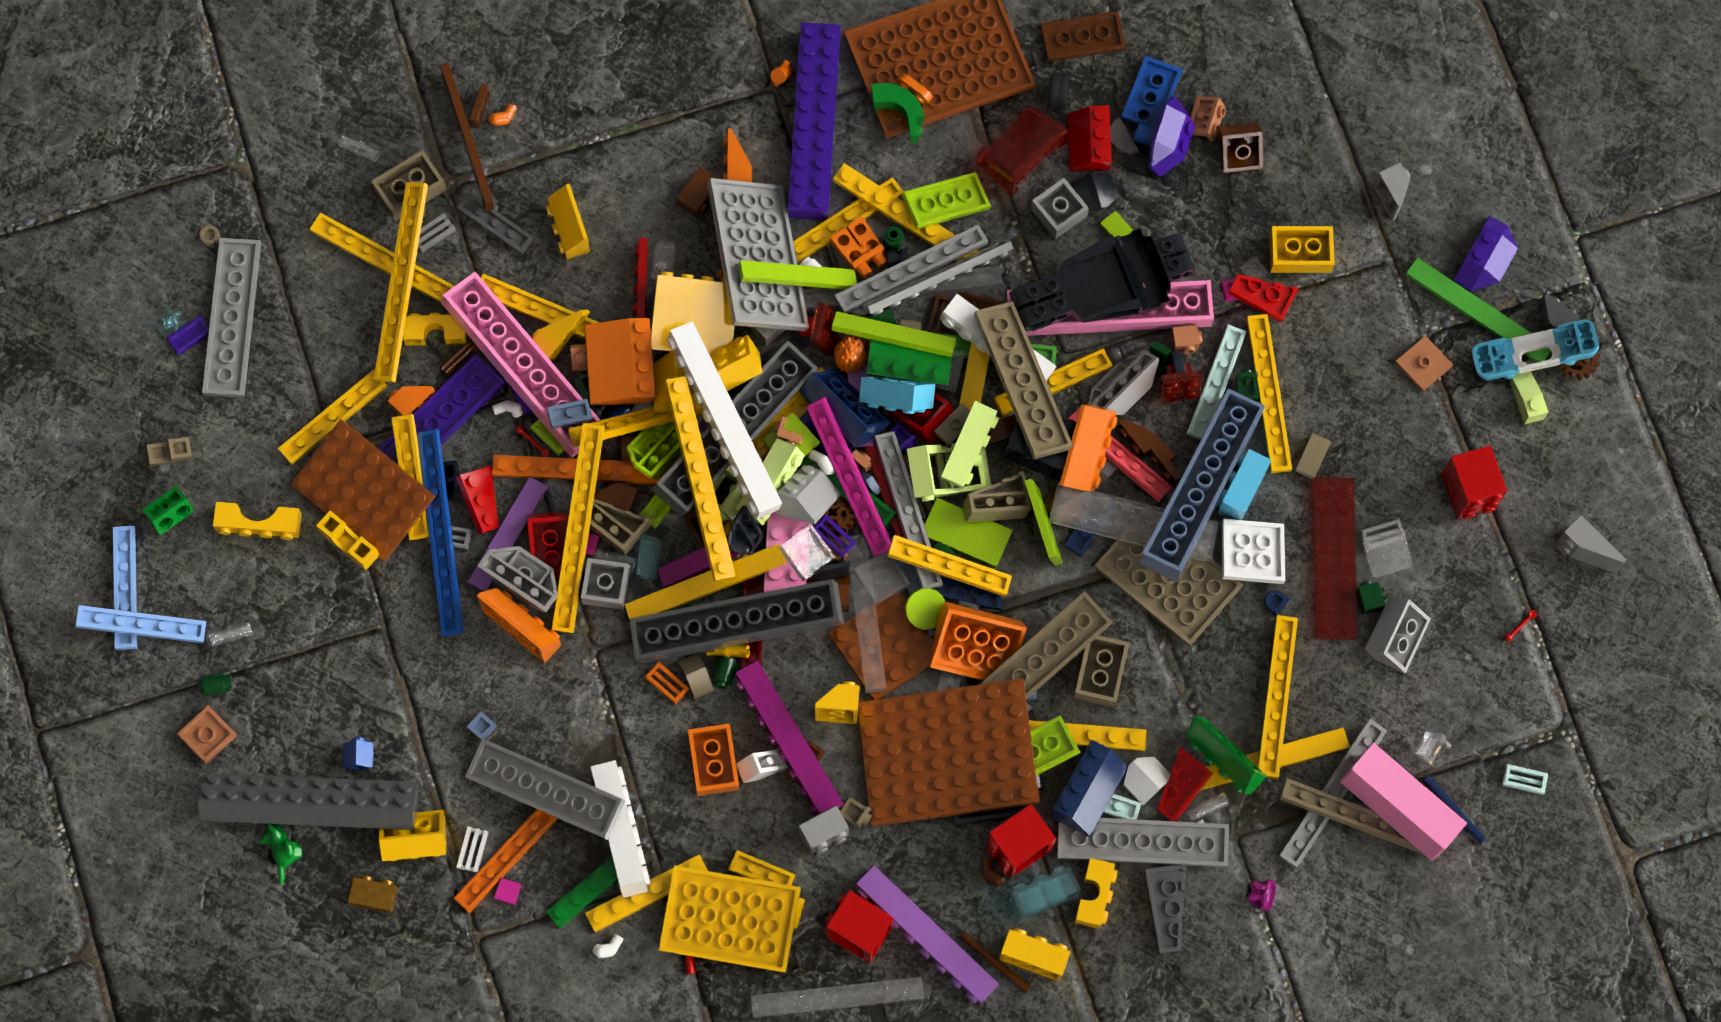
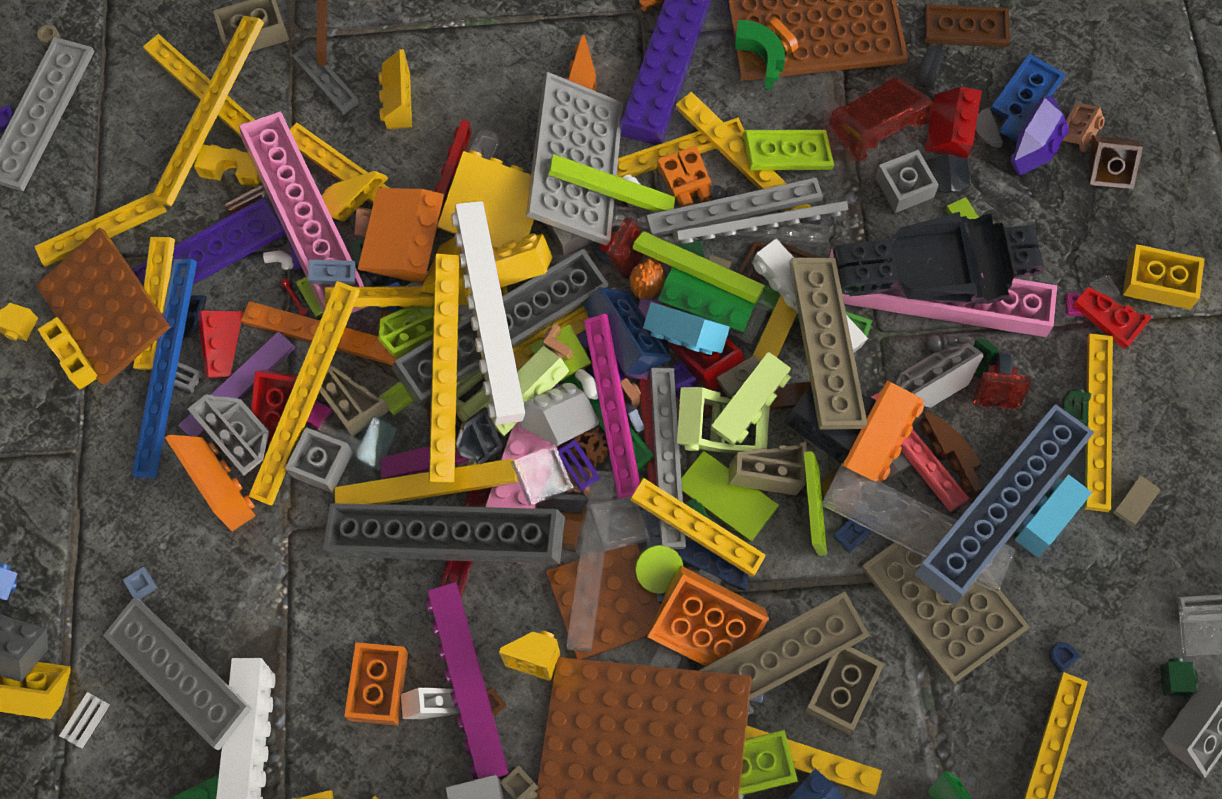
camera: 20 degrees right, 5 degrees down
(409, 398) = (182, 226): orange slope -> none
(451, 229) = (262, 73): light grey tile -> none
(504, 859) = (110, 743): orange tile -> none
(507, 891) = (106, 778): dark pink tile -> none
(619, 495) = (363, 371): reddish brown slope -> none
(680, 695) = (365, 600): orange tile -> none
(695, 195) = (528, 92): reddish brown brick -> none
(696, 676) = (388, 584): dark tan slope -> none
(724, 672) = (418, 587): dark green brick -> none
(732, 651) = (437, 566): yellow pin -> none
(893, 238) = (723, 174): dark green brick -> none
(1066, 377) = (875, 355): yellow tile -> none
(1186, 339) = (1016, 342): nougat brick -> none
(1216, 381) = (1041, 396): light aqua tile -> none
(1253, 551) = (1049, 592): white plate -> none
(1334, 558) = (1141, 624): clear red plate -> none

